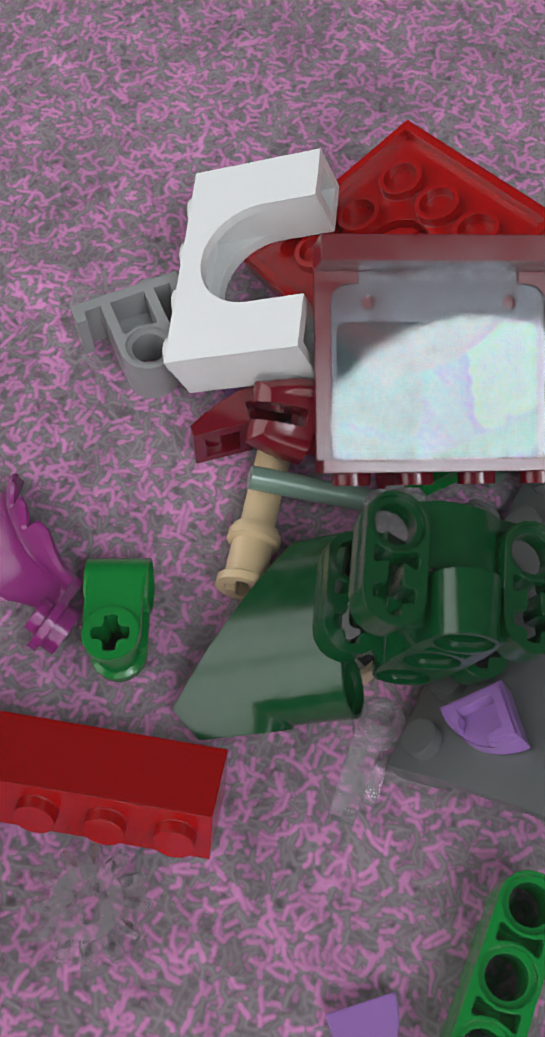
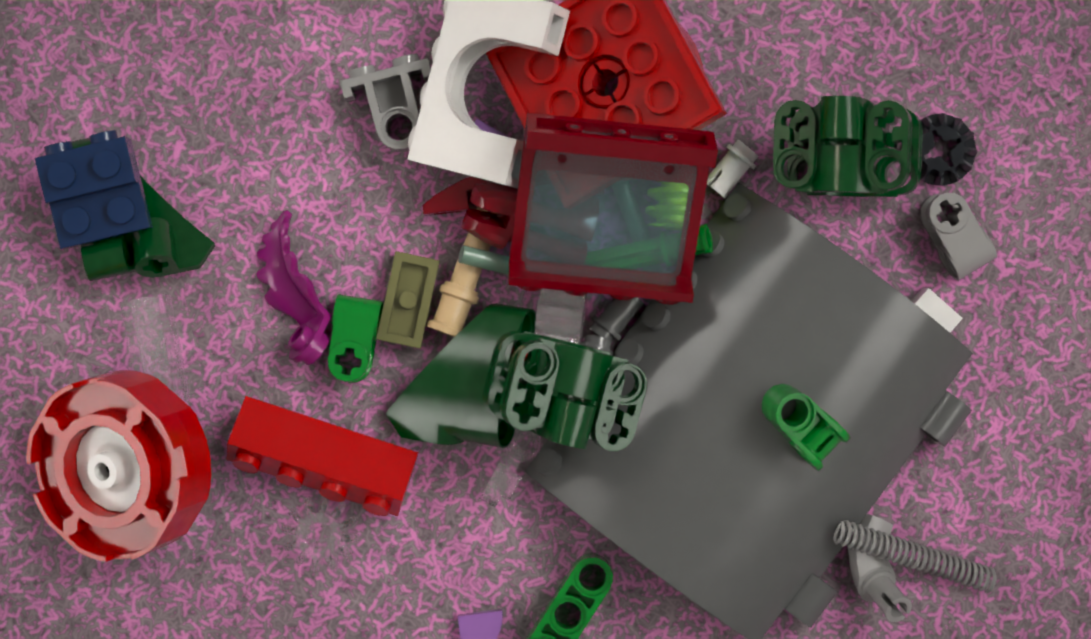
camera: 15 degrees right, 25 degrees up
(186, 557) = (408, 299): none -> olive plate
(488, 720) = (588, 466): medium lavender tile -> none

